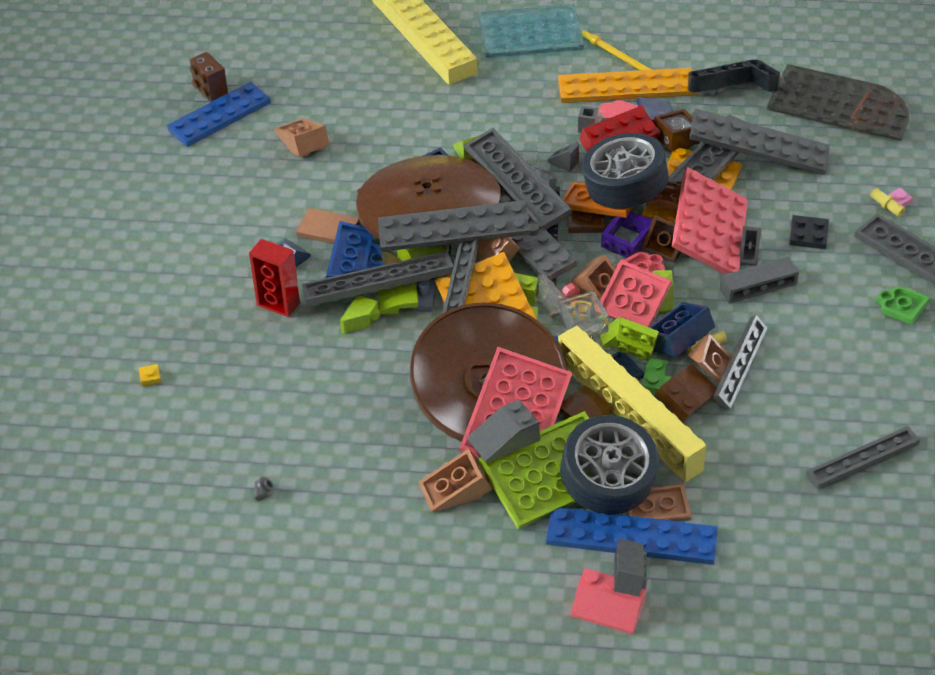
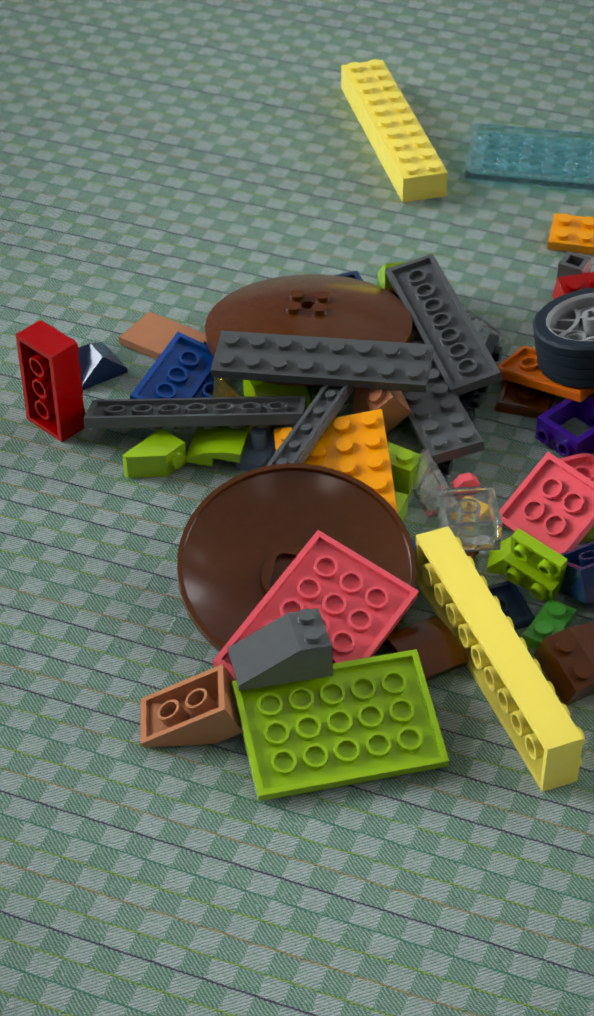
camera: 15 degrees right, 5 degrees down
(208, 76) = (89, 136): reddish brown piece -> none
(218, 114) = (87, 183): blue plate -> none
(303, 136) = (181, 227): nougat slope -> none
(566, 157) = (523, 314): dark grey slope -> none
(595, 276) = (507, 471): nougat slope -> none
(599, 603) = (353, 944): coral slope -> none
(609, 464) = (424, 734): wheel -> none
(630, 568) = (396, 899): dark grey brick -> none
(659, 537) = (432, 853): blue plate -> none
(664, 504) = (485, 815): nougat tile -> none

